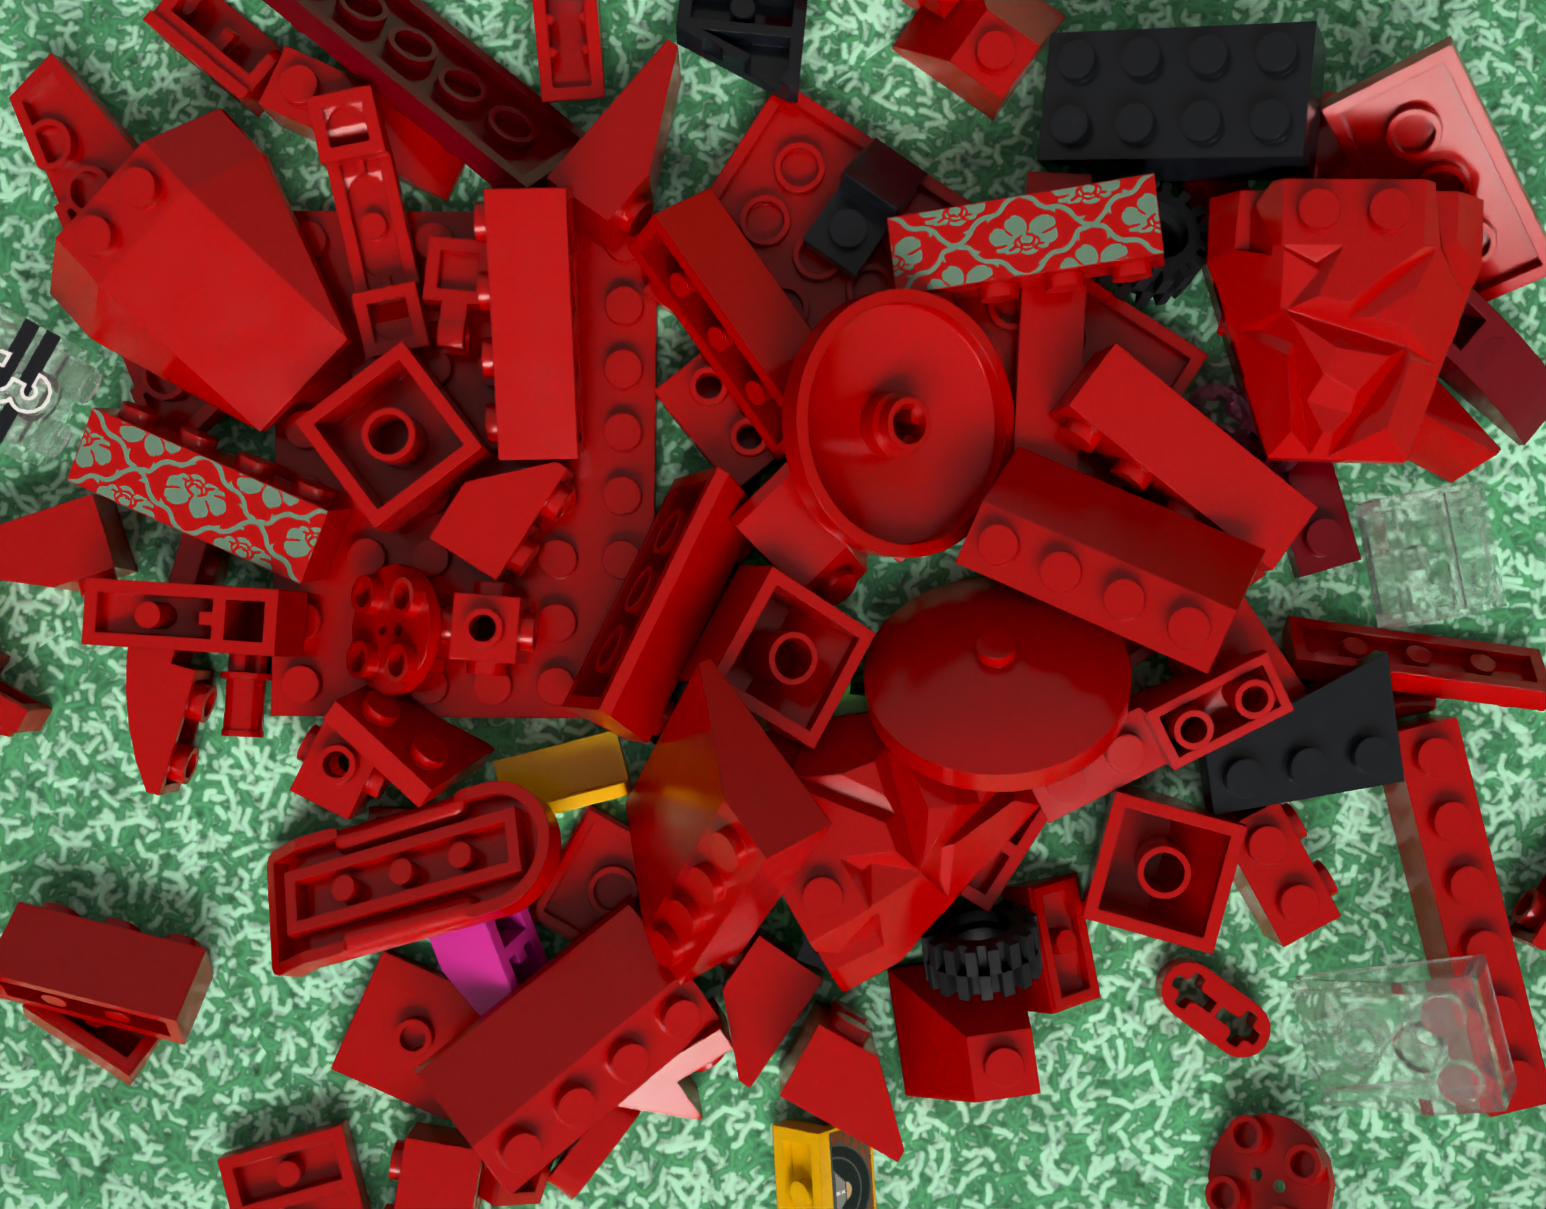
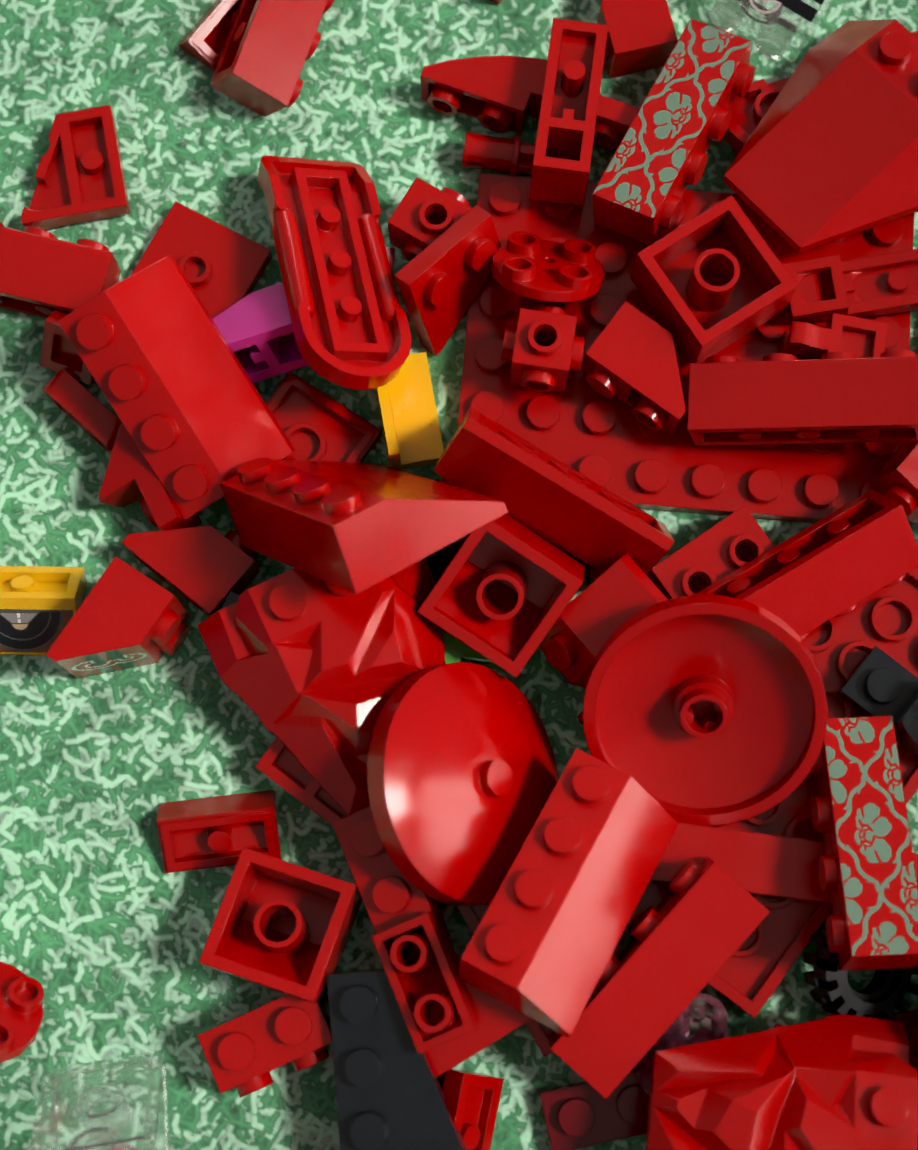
camera: 90 degrees right, 10 degrees down
(961, 1046) = (151, 742): red slope -> none
(982, 950) = (222, 756): black tyre -> none
(1203, 1018) = (135, 965): red beam -> none

